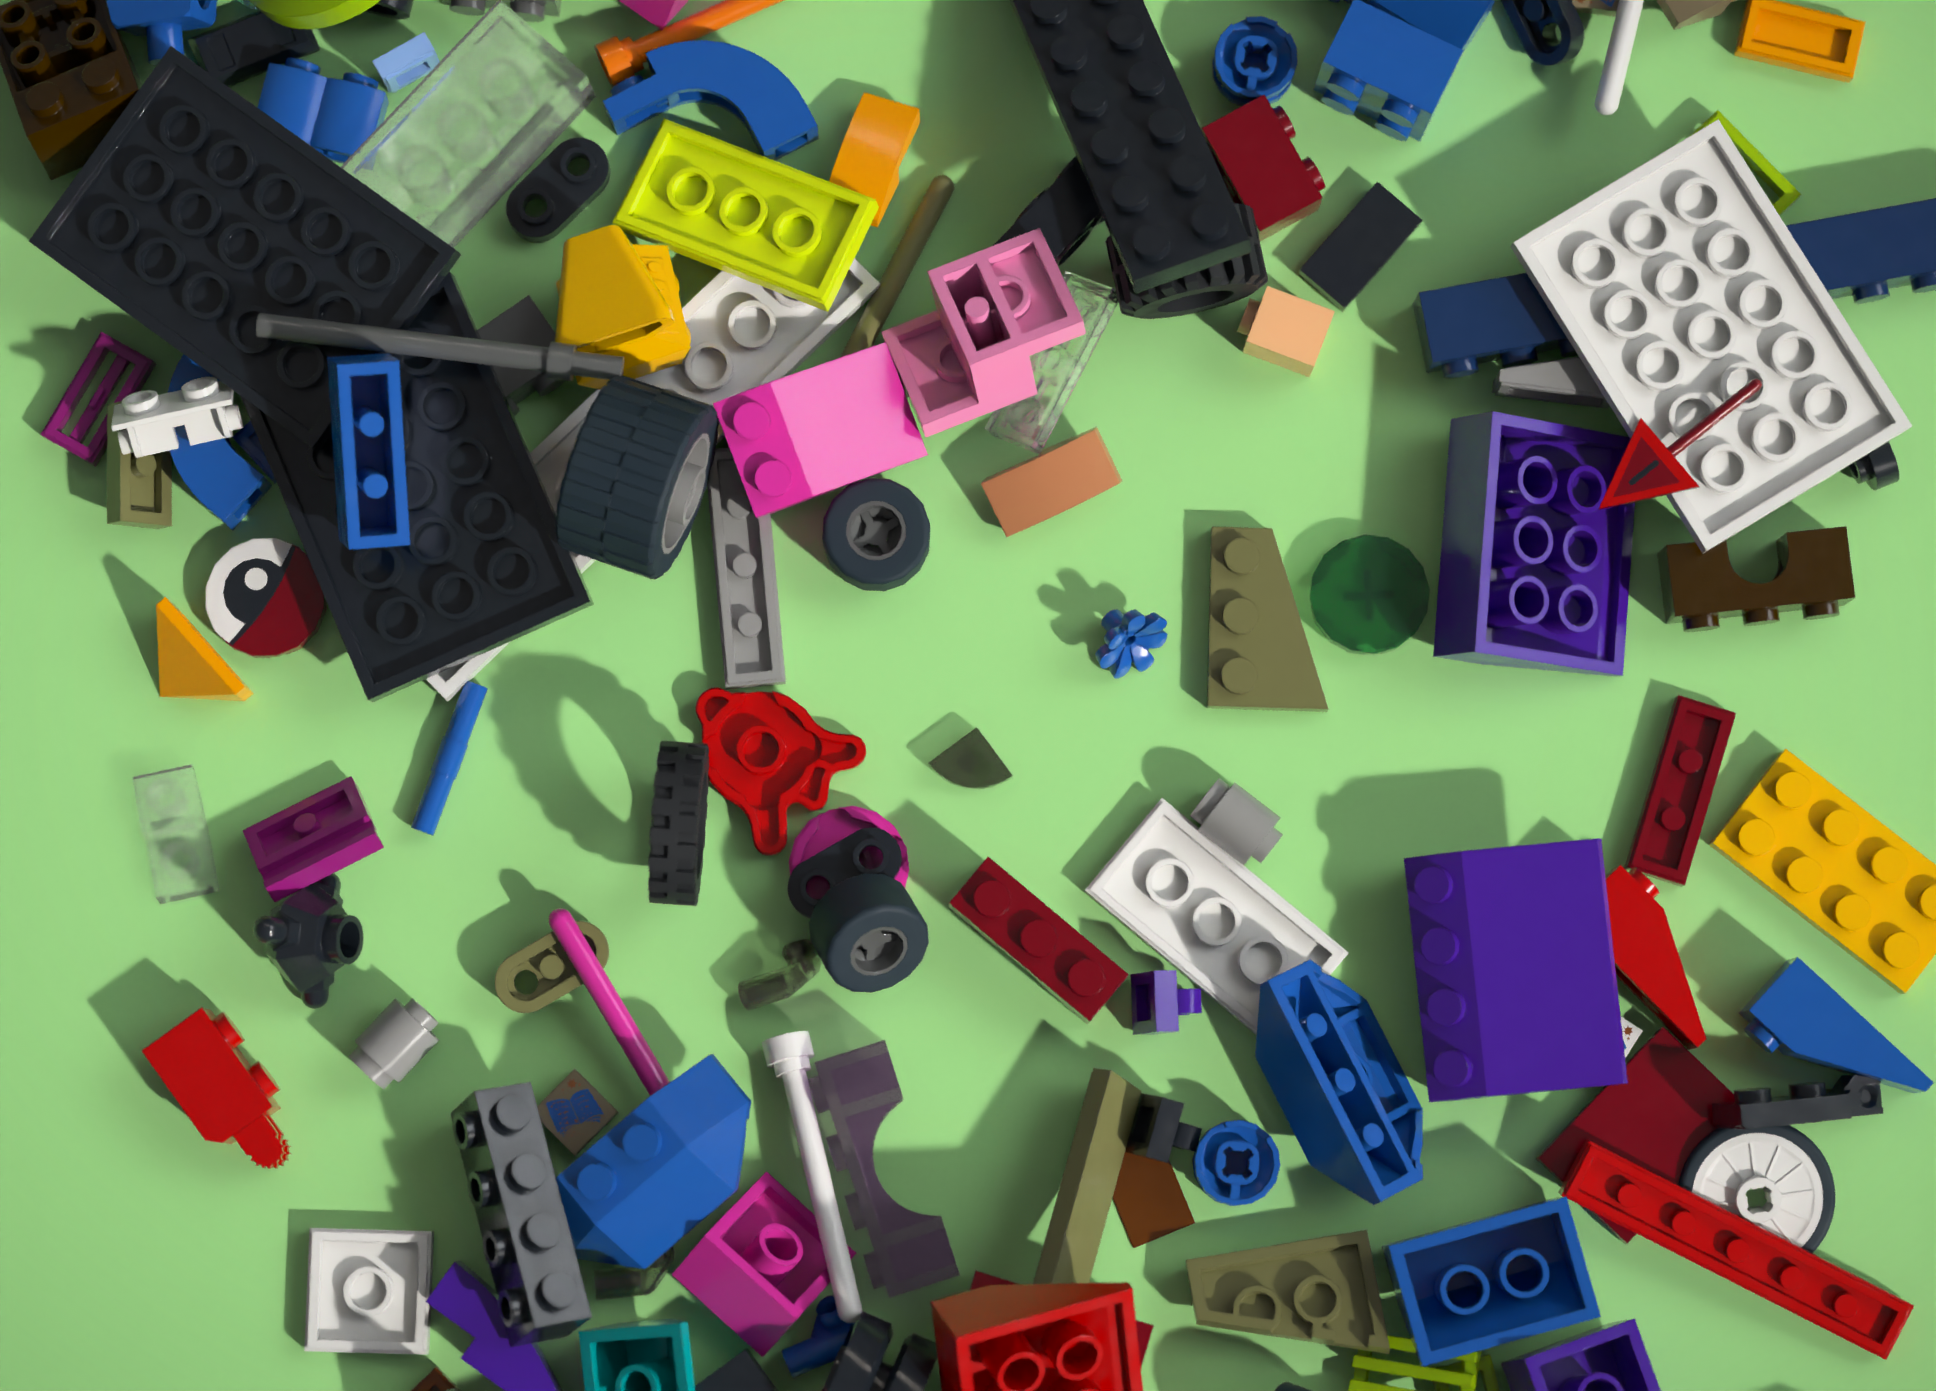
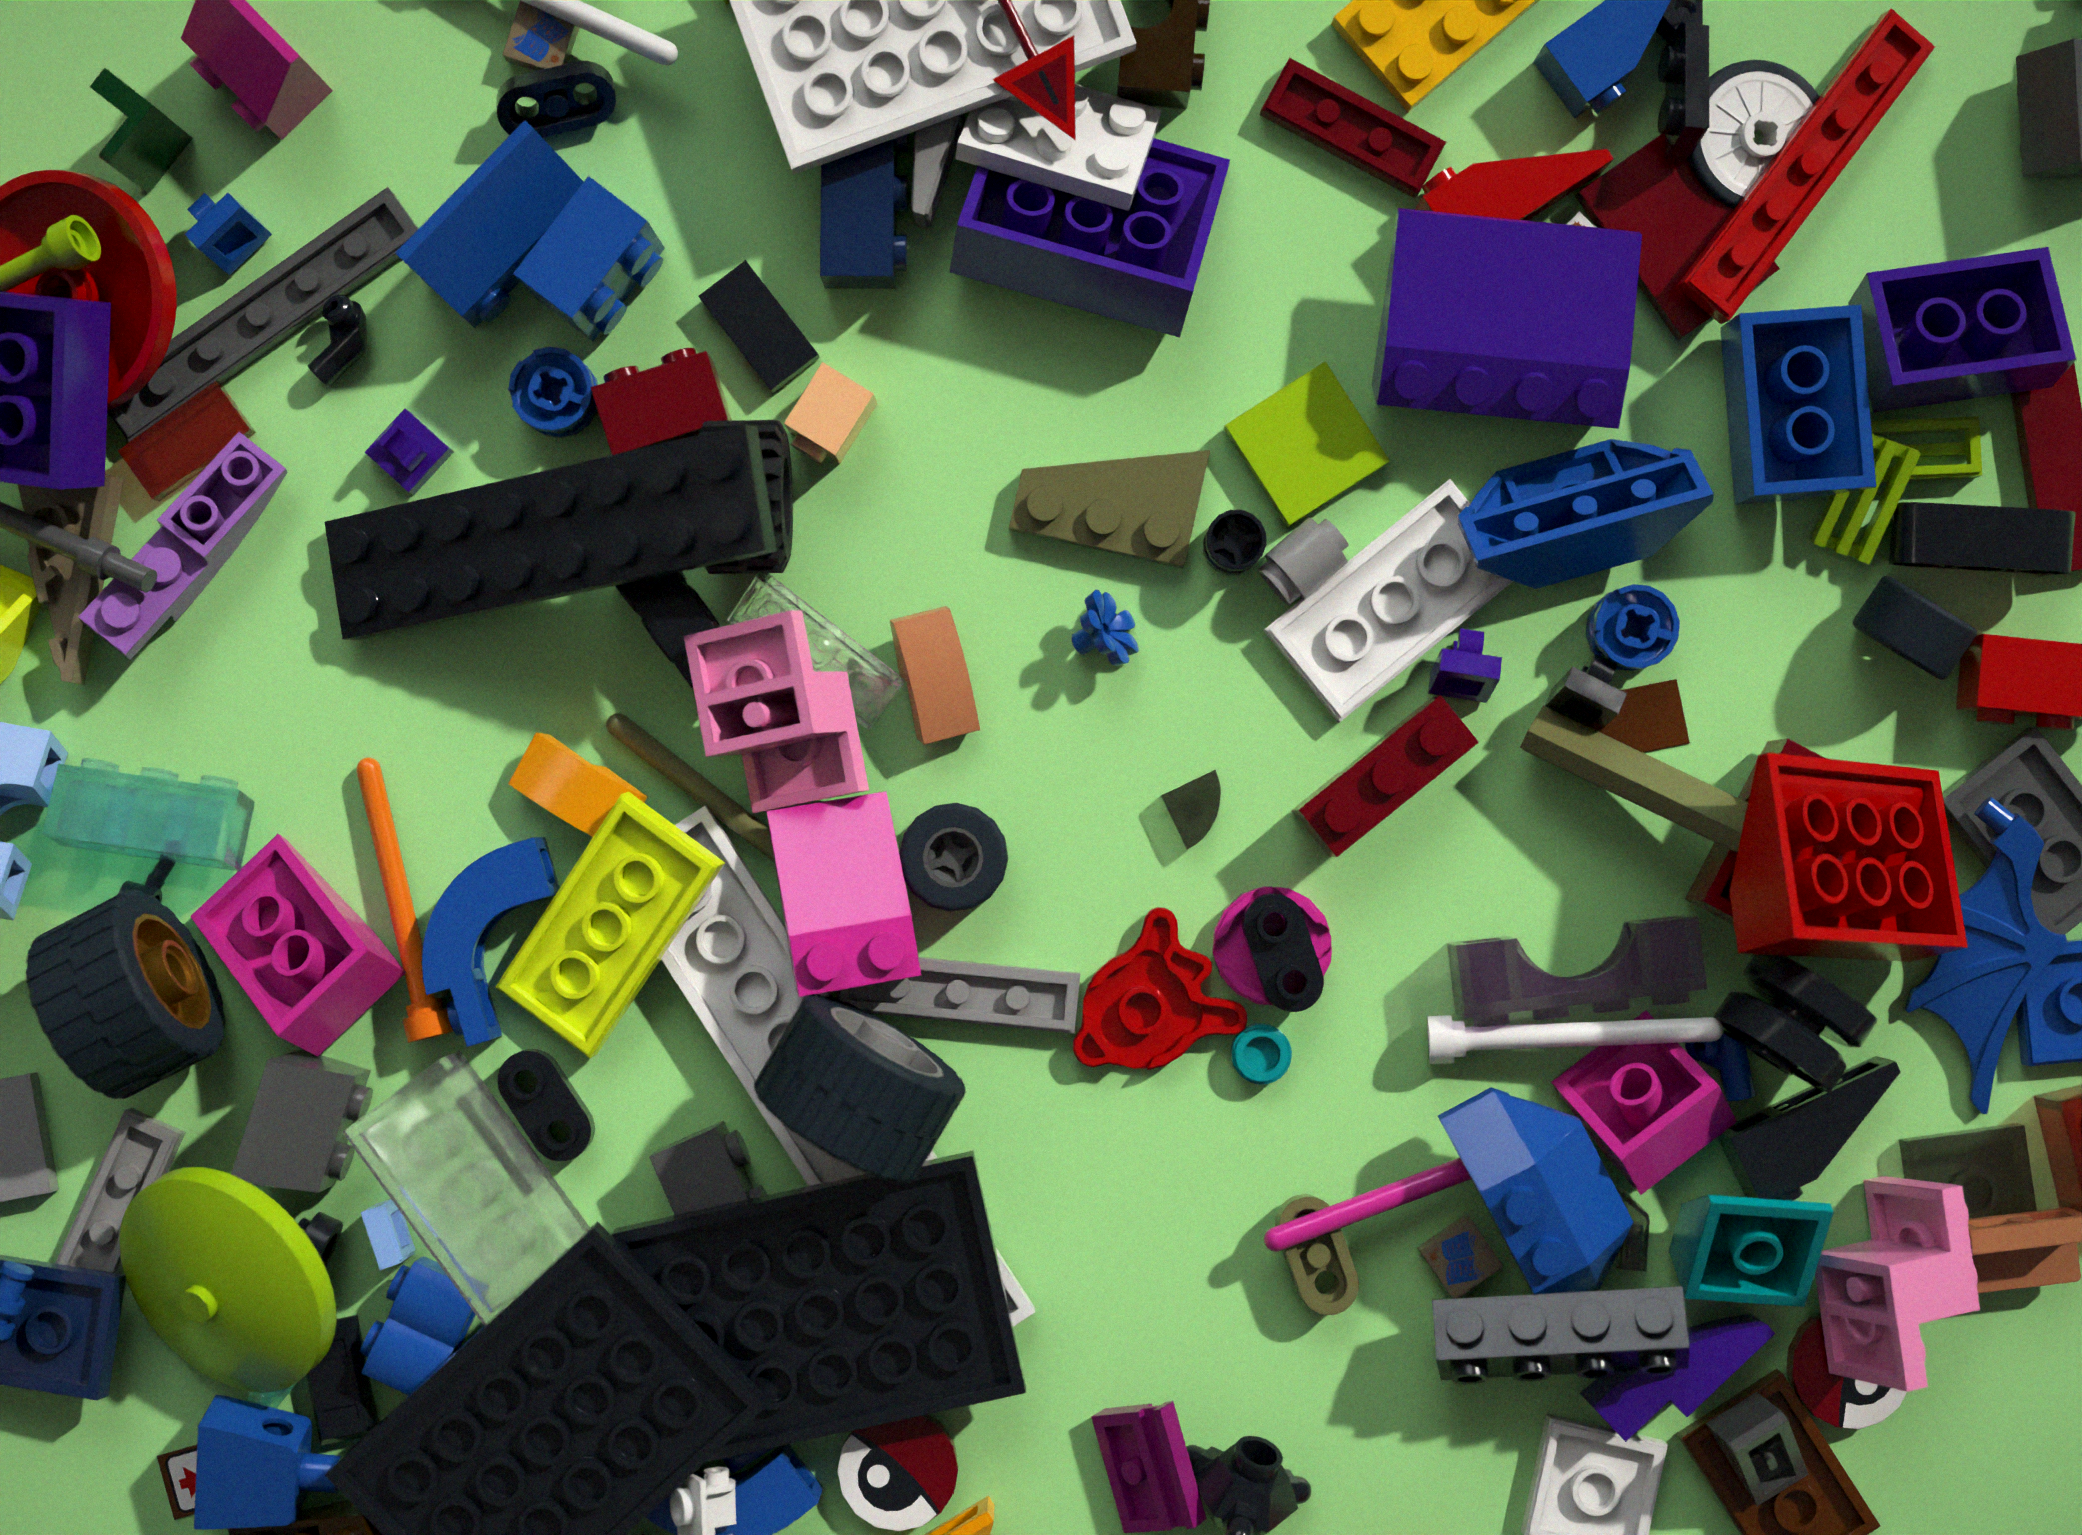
camera: 80 degrees left, 5 degrees up
(368, 451) = (782, 1354): blue brick -> none
(395, 1042) = (1362, 1422): light grey brick -> none
(449, 758) = (1091, 1316): blue piece -> none
(559, 361) = (727, 1146): dark grey bar -> none
(620, 303) = (681, 1071): yellow piece -> none
(678, 823) = (1209, 1108): black tyre -> none
(740, 876) = (1261, 1053): none -> teal tile
(784, 981) = (1374, 1029): clear smoke arm -> none
(868, 933) = (1348, 941): black wheel -> none
(1248, 743) = (1237, 534): none -> black wheel
(1294, 1290) = (1766, 595): olive wing -> none
(1354, 804) = (1306, 444): none -> lime tile
(1369, 595) = (1104, 388): clear green tile -> none
(1592, 547) = (1098, 166): none -> white plate

